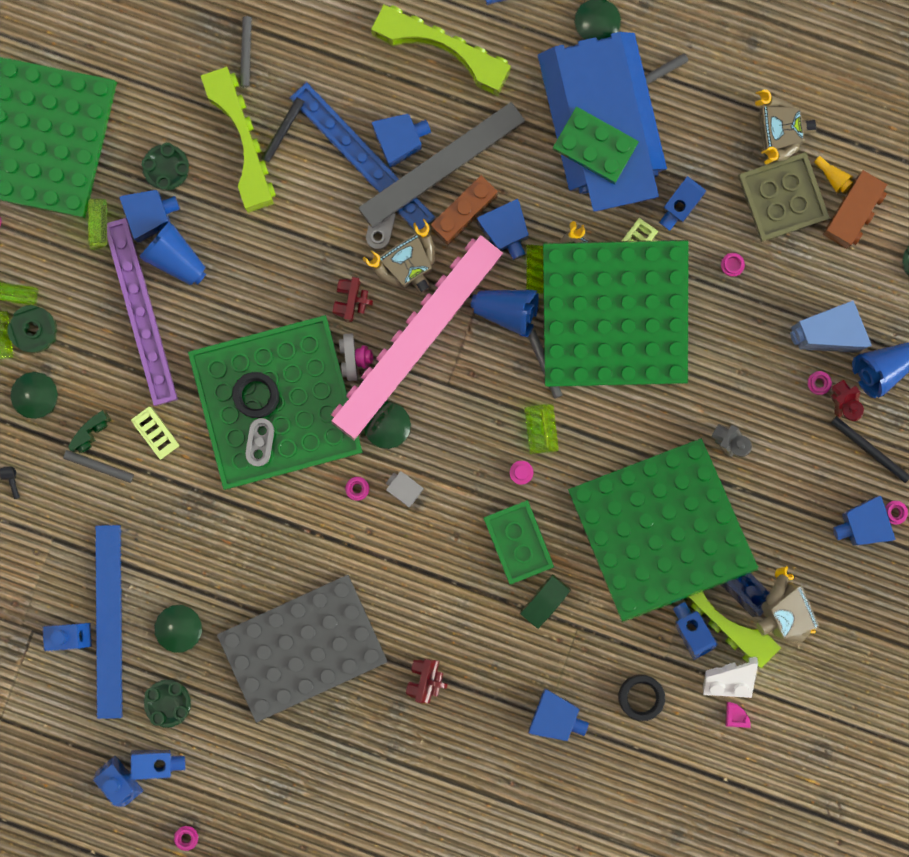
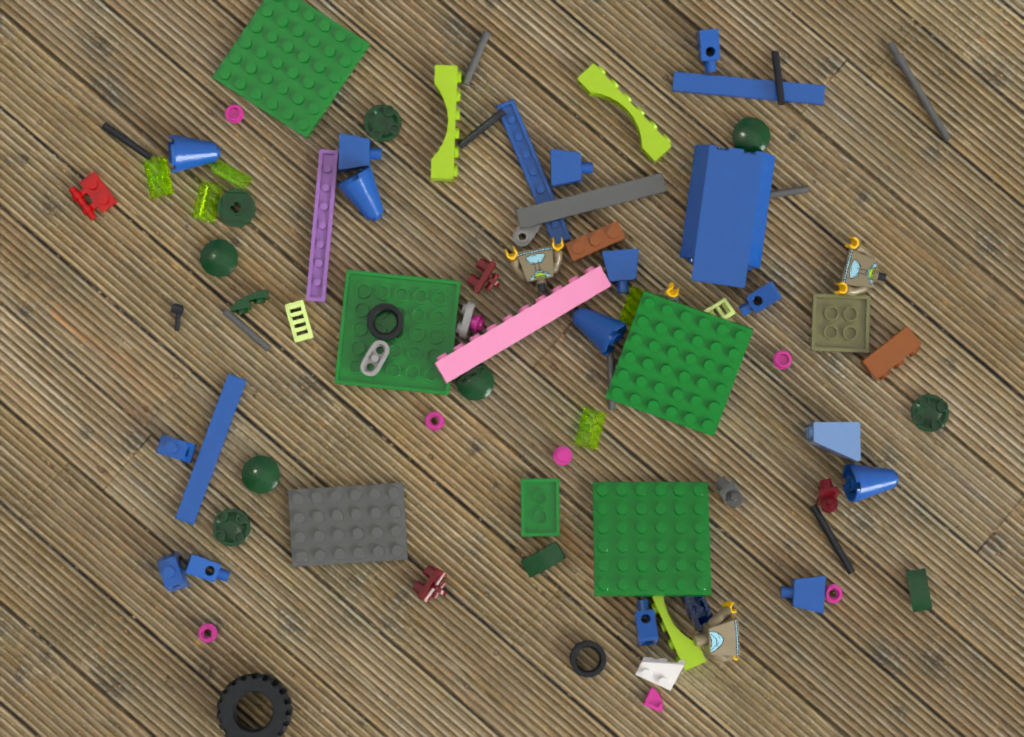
camera: 15 degrees right, 0 degrees up
(97, 223) = (315, 147): clear neon green slope -> none
(404, 488) = (469, 434): light grey brick -> none
(556, 718) = (518, 649): blue torso -> none
(595, 145) = (711, 231): green plate -> none
(827, 383) = (819, 474): dark pink plate -> none
(837, 178) = (887, 325): yellow cone -> none

